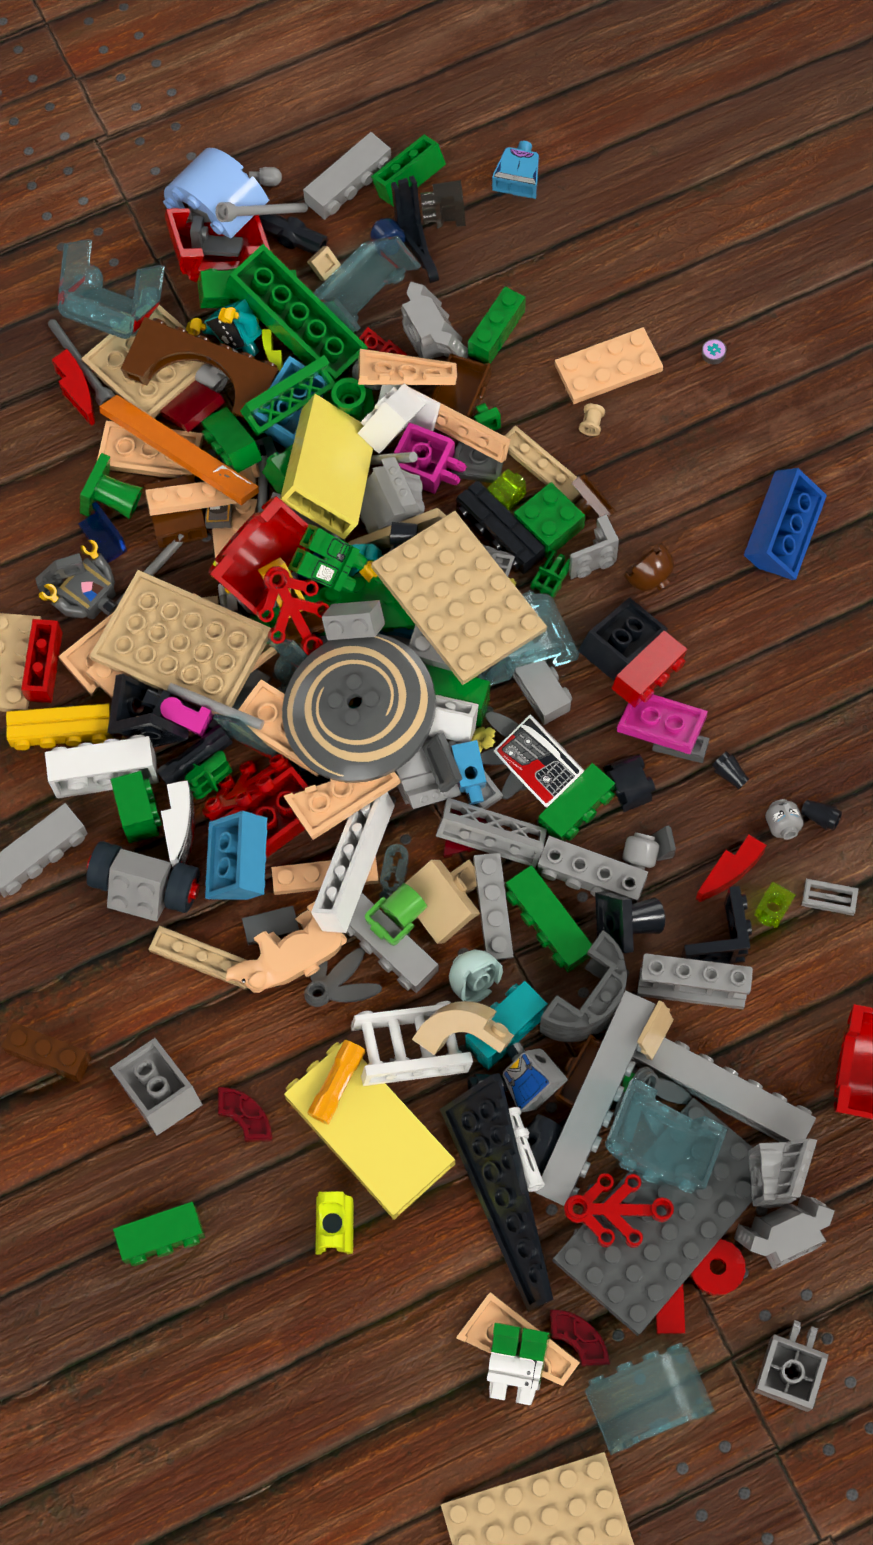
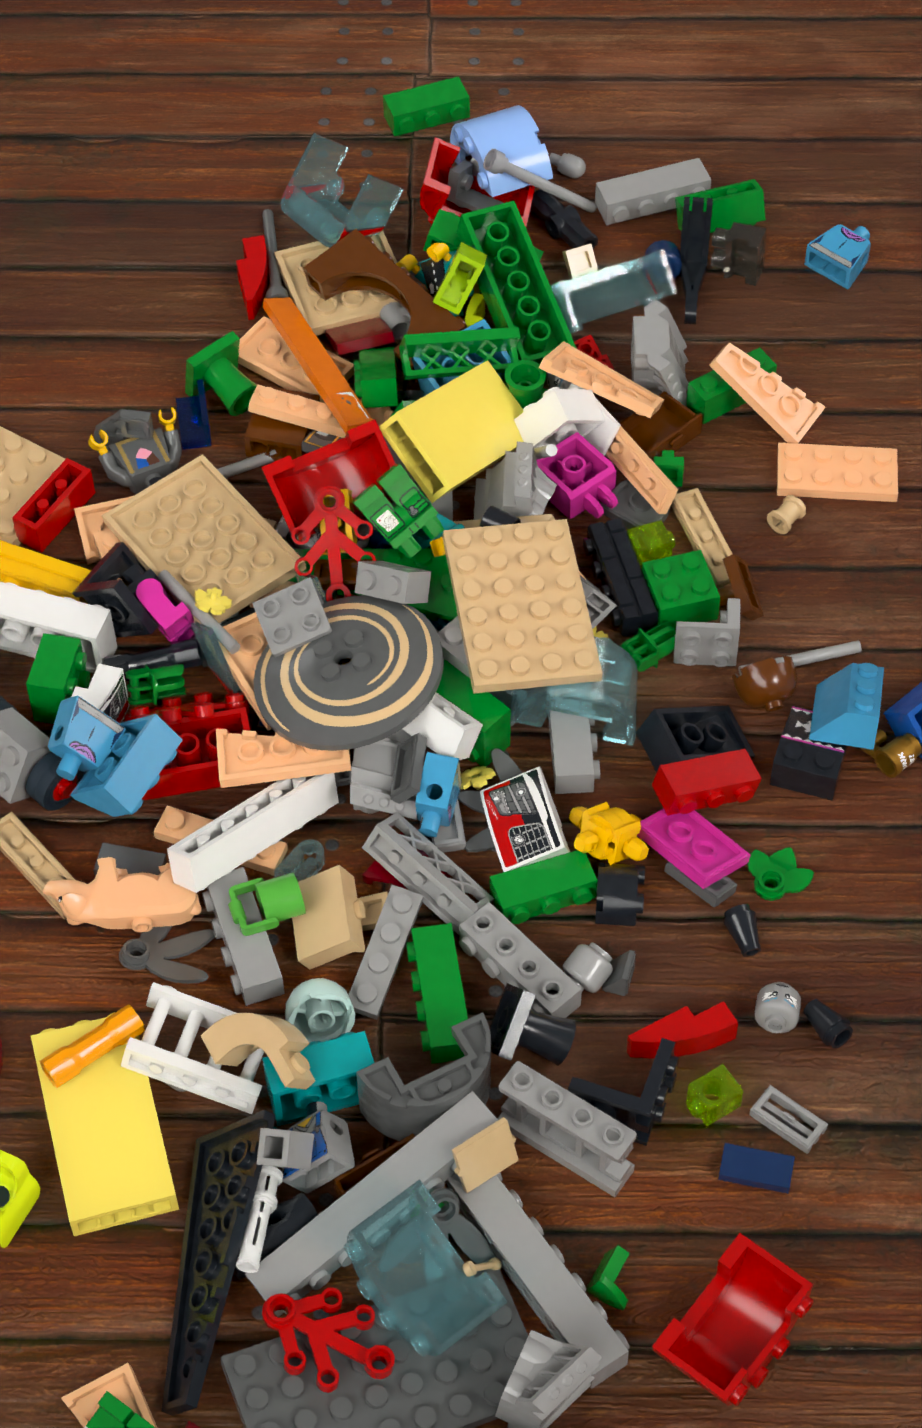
camera: 25 degrees right, 15 degrees down
(125, 169) = (426, 106): none -> green brick
(193, 852) = (82, 737): none -> dark azure torso
(220, 694) = (212, 601): none -> light yellow plant
(257, 329) = (460, 278): none -> lime arch
(296, 684) = (292, 617): none -> light grey bracket
(519, 1094) = (285, 1148): none -> light grey brick
(537, 327) = (773, 400): none -> light nougat wing
(603, 742) = (608, 833): none -> yellow piece
(660, 535) = (821, 654): none -> light grey bar
(691, 1098) = (471, 1269): none -> tan hinge
(707, 607) = (804, 763): none -> black slope
(719, 563) = (848, 706): none -> dark azure slope
(731, 712) = (780, 871): none -> green plate
(766, 584) = (896, 754): none -> pearl gold piece
(770, 1070) = (602, 1282): none -> green tile
(827, 943) = (756, 1168): none -> dark blue tile

